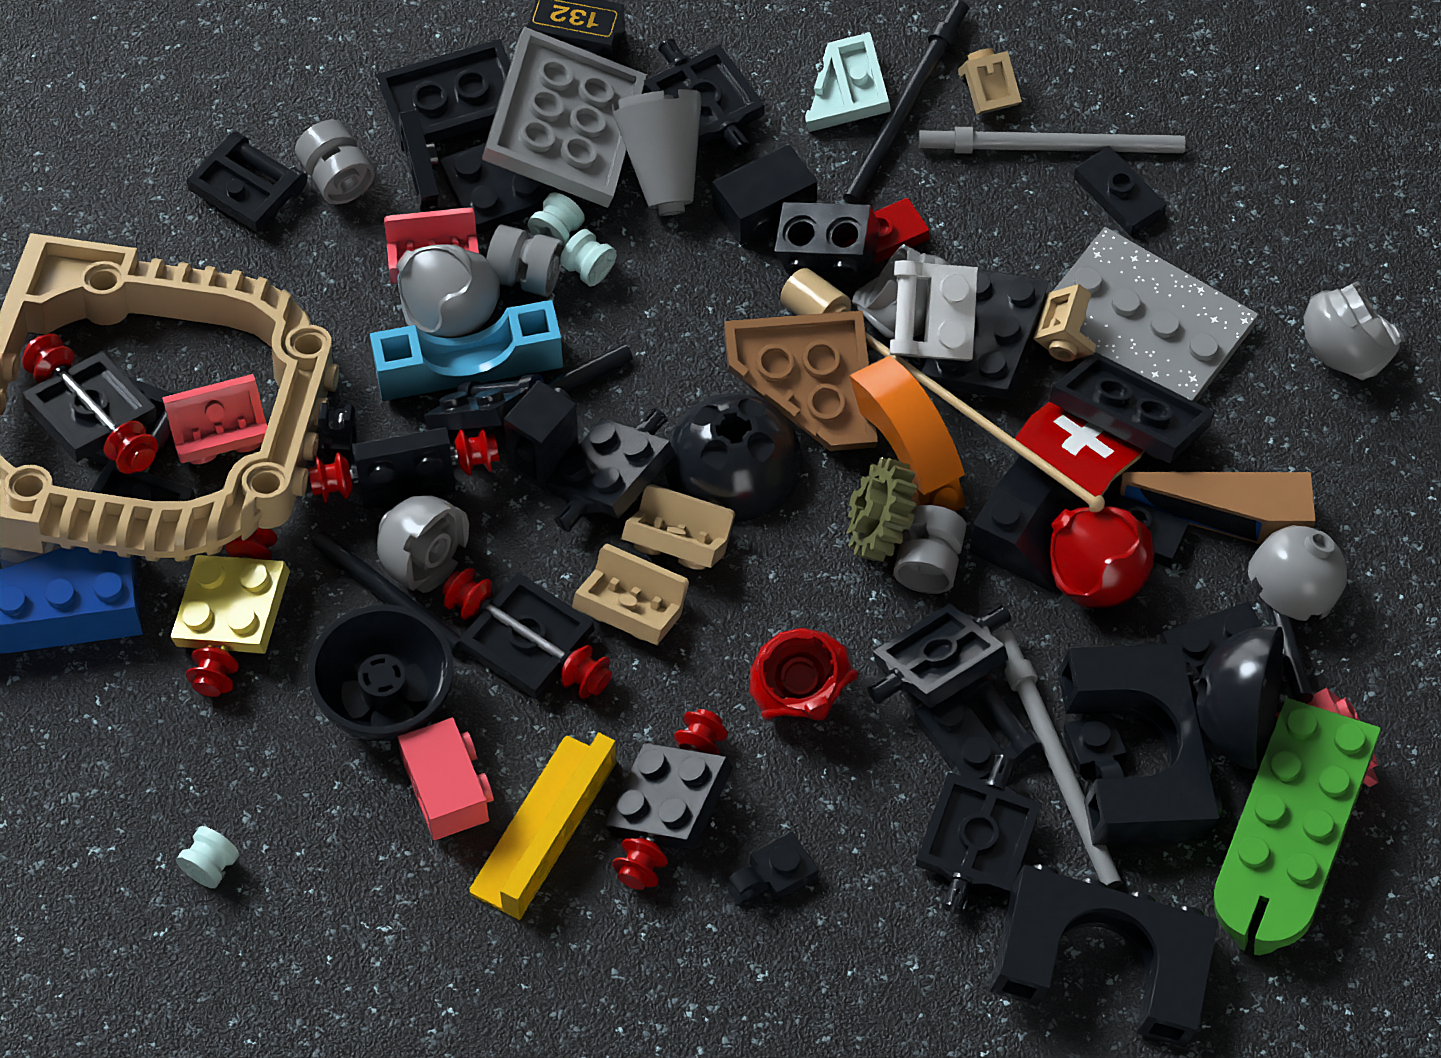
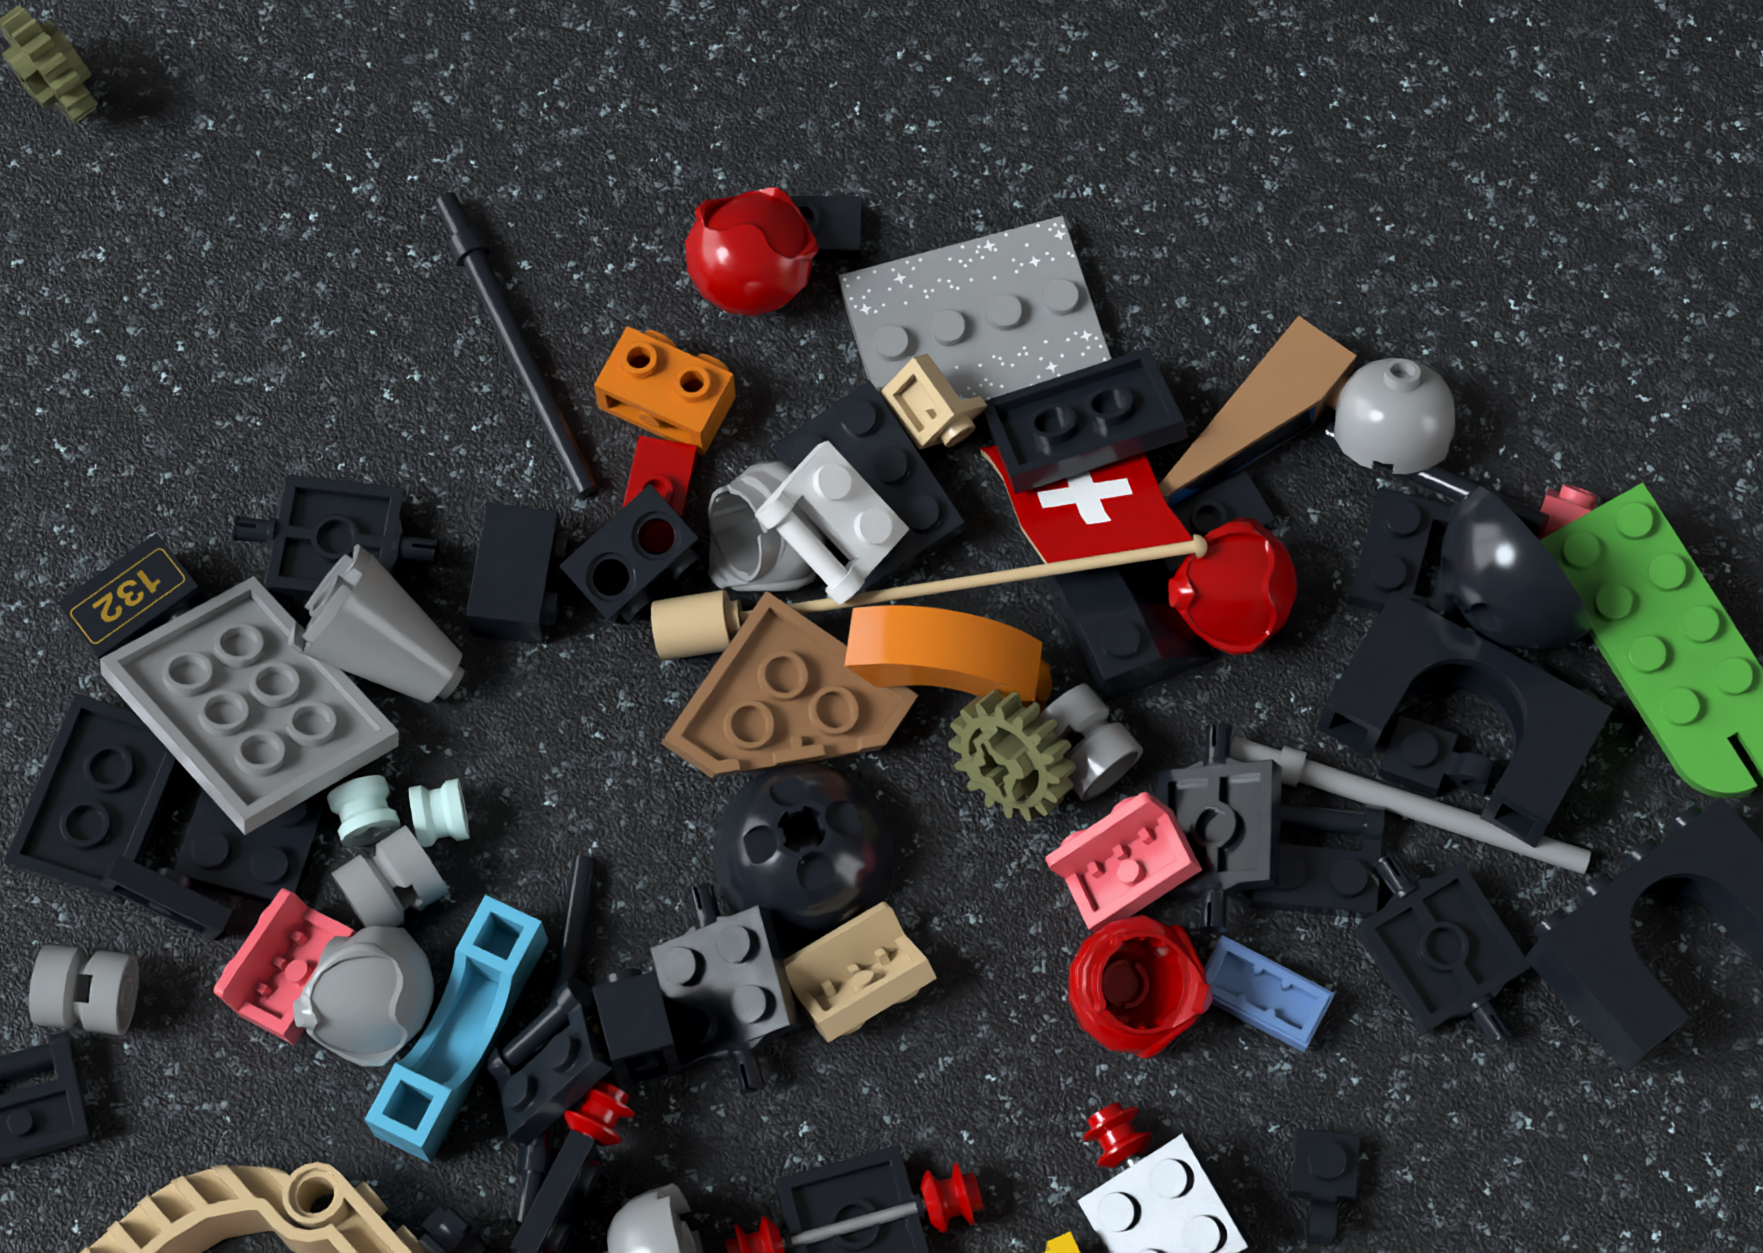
camera: 50 degrees left, 10 degrees up
(632, 595) = (897, 1082): tan bracket -> none
(848, 85) = (447, 383): light aqua wing -> none
(861, 756) = (1266, 993): none -> medium blue plate
(874, 614) = (1124, 860): none -> coral bracket
(948, 189) = (665, 388): none -> orange brick
(965, 140) = (613, 321): light grey bar -> none
(990, 80) = (567, 244): tan bracket -> none
(1071, 165) = (750, 251): none -> red helmet
(1349, 332) = (1163, 151): light grey helmet -> none

